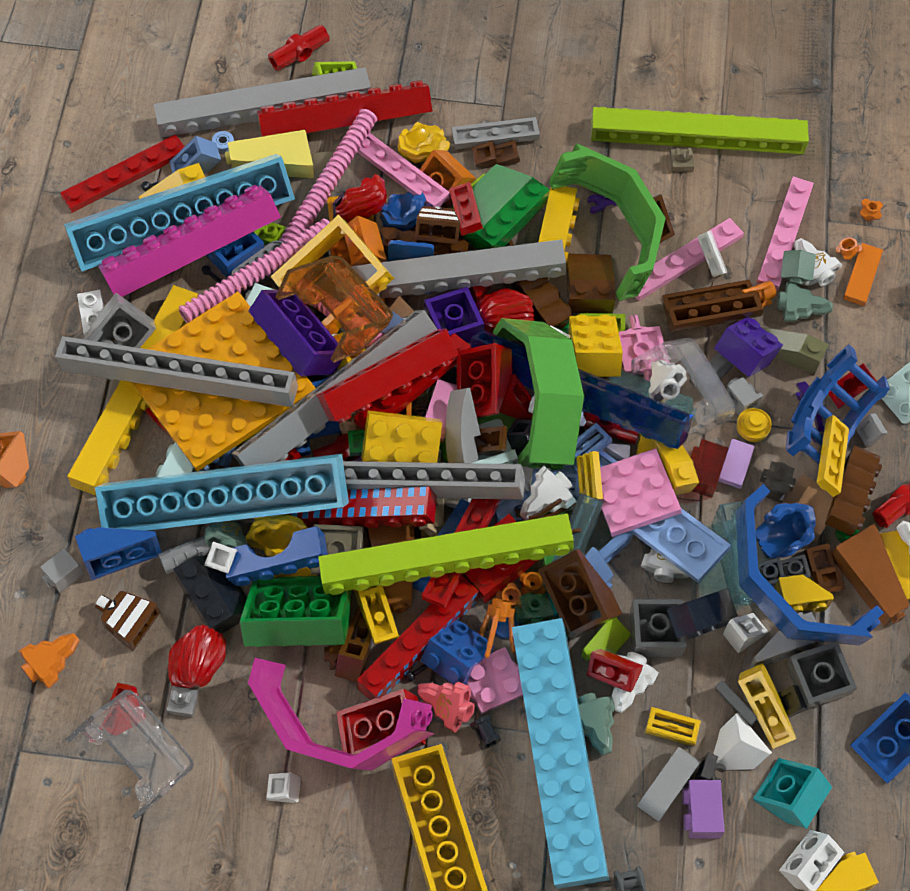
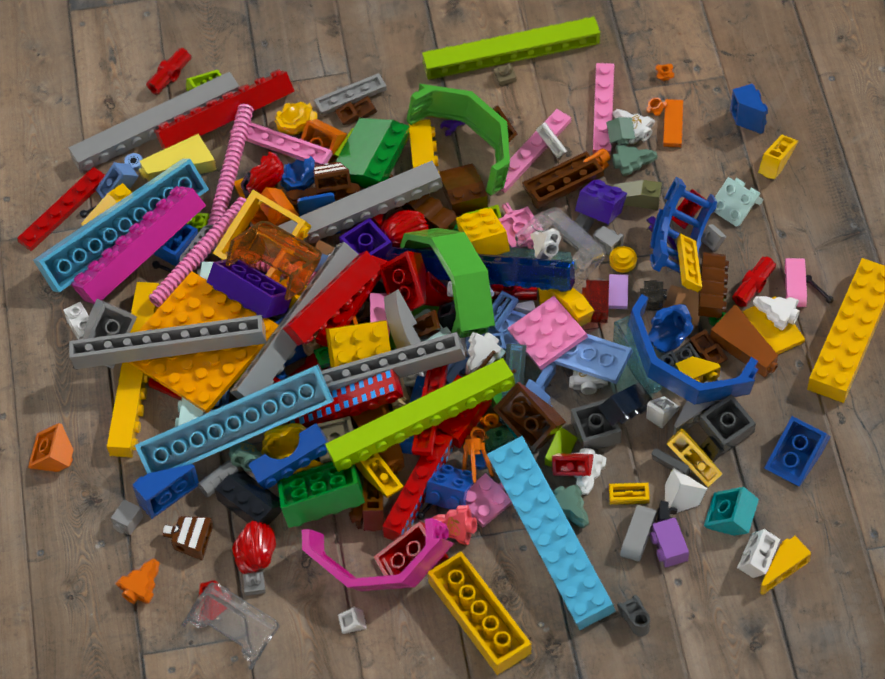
camera: 10 degrees left, 5 degrees down
(220, 557) = (249, 469): white slope -> none
(466, 208) = (348, 157): red plate -> none
(485, 732) = (490, 537): black bush -> none
(589, 475) = (509, 329): yellow tile -> none

